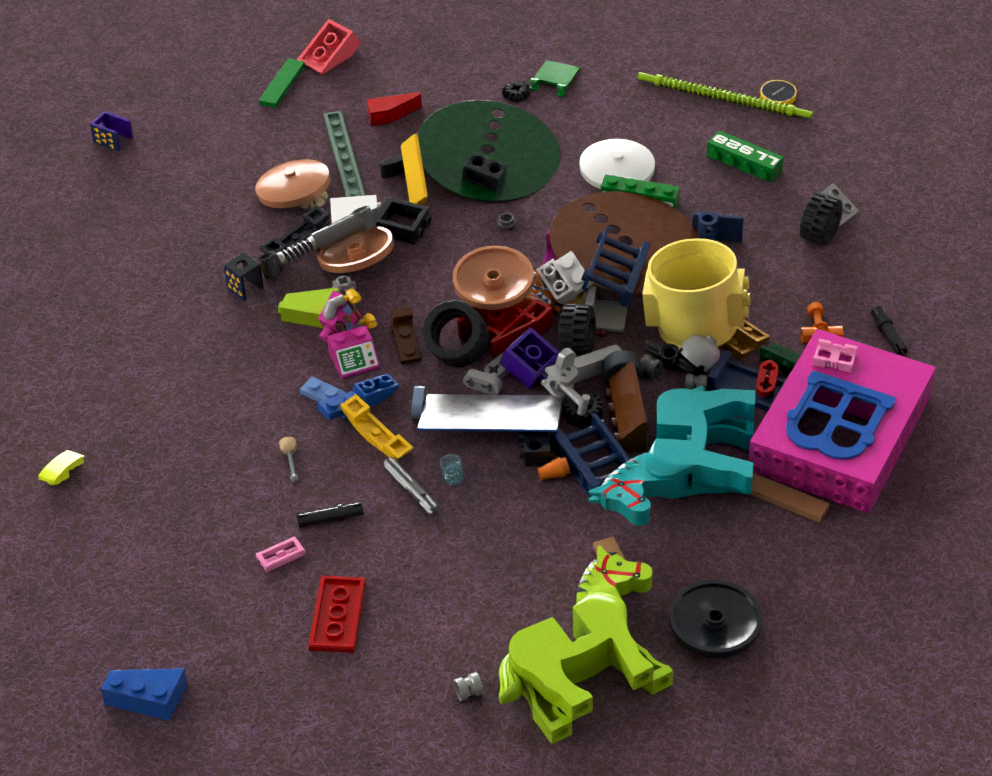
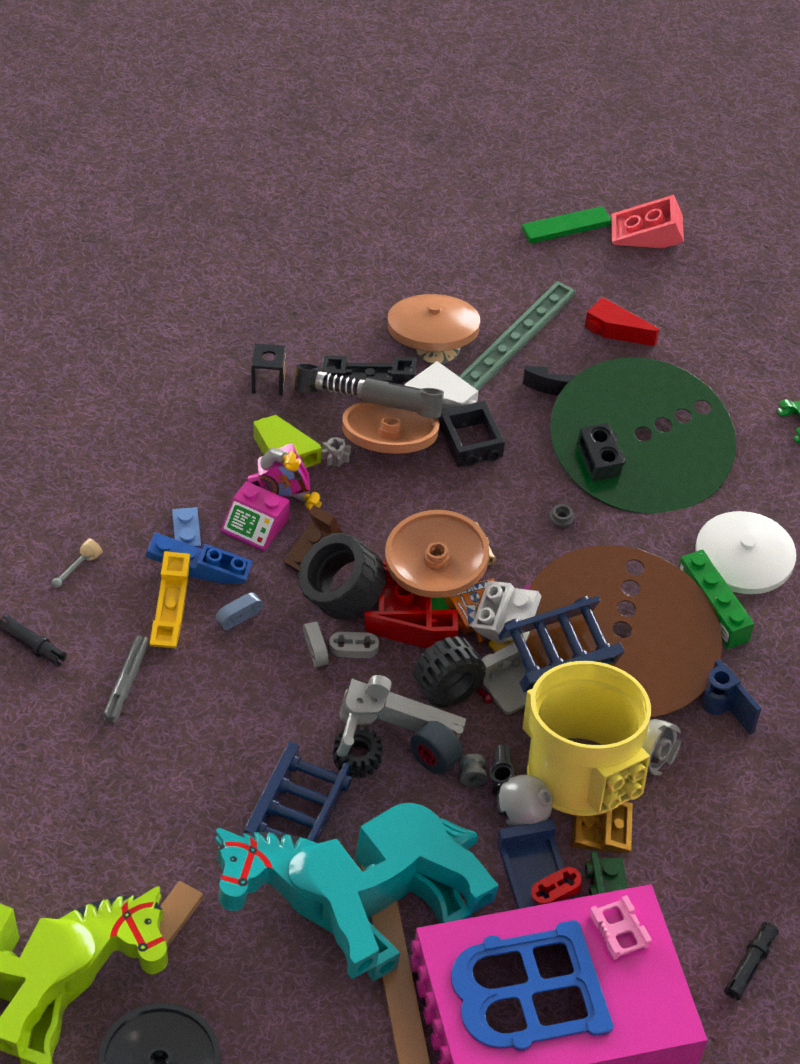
camera: 45 degrees right, 5 degrees up
(111, 127) = (371, 148): dark purple piece -> none
(414, 171) = (542, 399): yellow slope -> none
(451, 469) = (172, 696): clear light blue wheel -> none
(490, 413) = (272, 677): piece -> none
(513, 95) = (763, 409): black gear -> none
(529, 358) = (381, 643): dark purple hinge -> none
(534, 448) = (273, 744): black brick -> none
(555, 469) = (249, 781): orange cone -> none
(627, 410) = (387, 788): reddish brown slope -> none
(699, 381) = (486, 828): dark grey wheel -> none
(816, 311) = (686, 891): orange bar -> none

